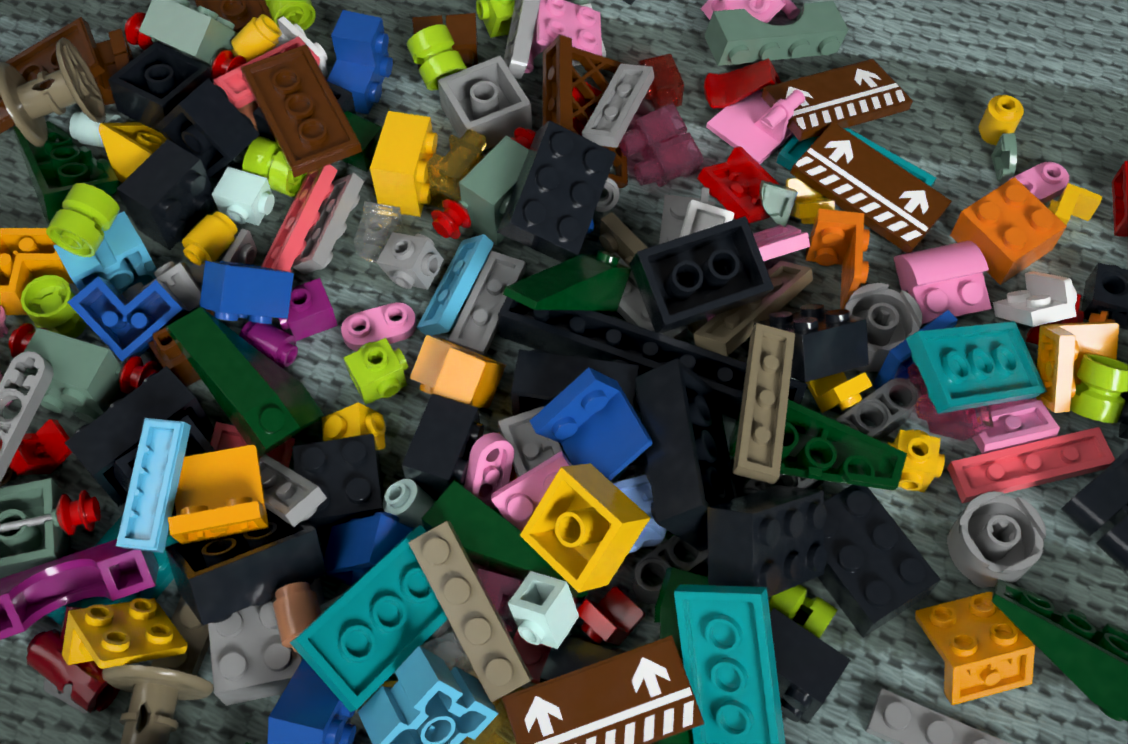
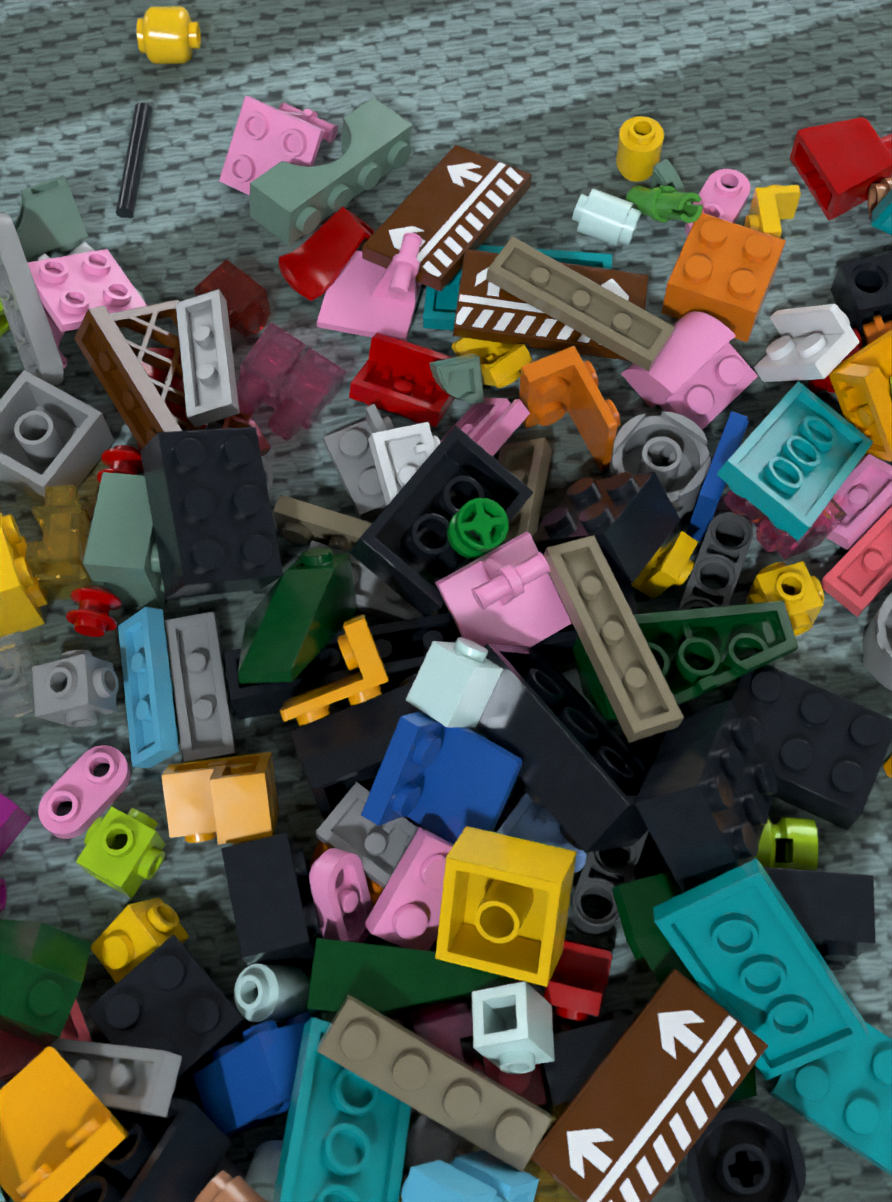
camera: 30 degrees left, 5 degrees up
(592, 316) = (358, 651): none -> light orange bracket
(639, 370) = (455, 683): none -> light aqua brick
(711, 342) = (505, 596): none -> bright pink plate
(725, 280) = (487, 521): none -> green wheel
(889, 193) = (580, 303): none -> dark tan plate
(948, 153) = (606, 217): none -> light aqua brick
(994, 162) = (665, 203): none -> bright green pin

